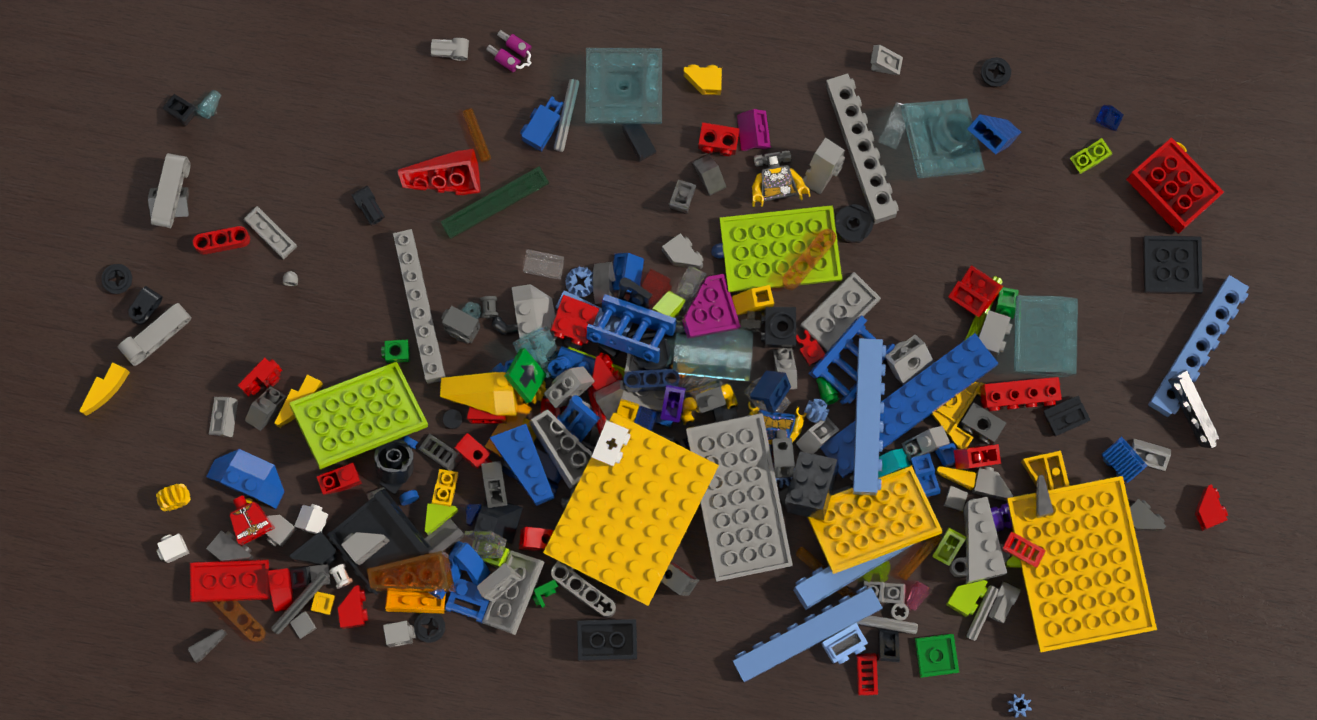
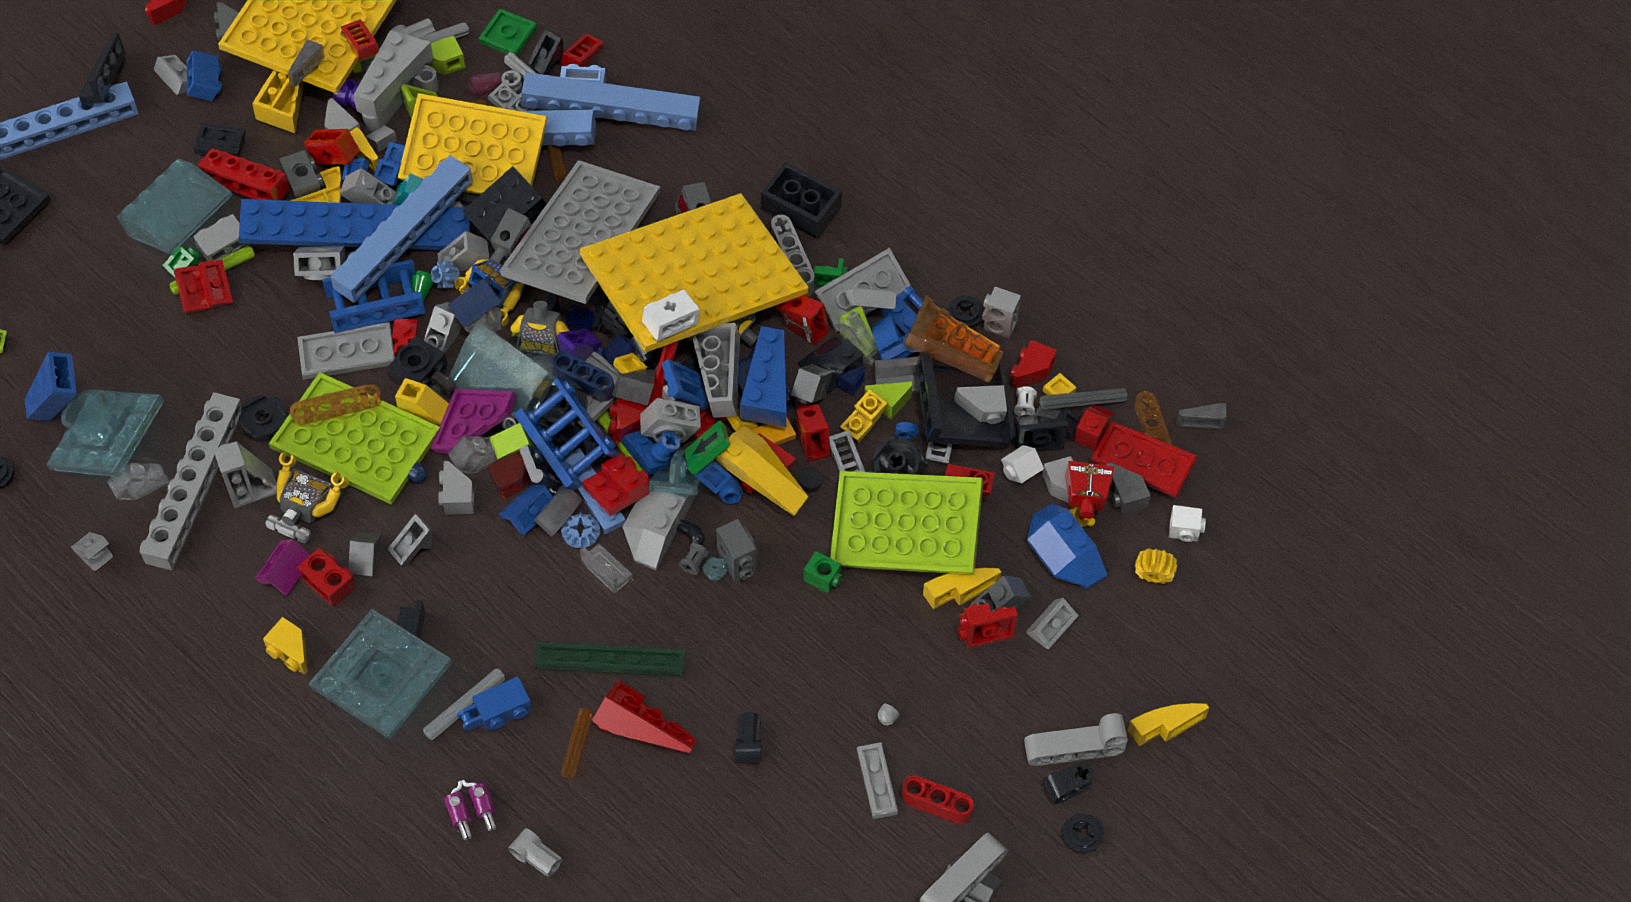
camera: 145 degrees left, 20 degrees down
(303, 625) = (1091, 380): light grey slope -> none
(419, 306) = (766, 602): light grey brick -> none

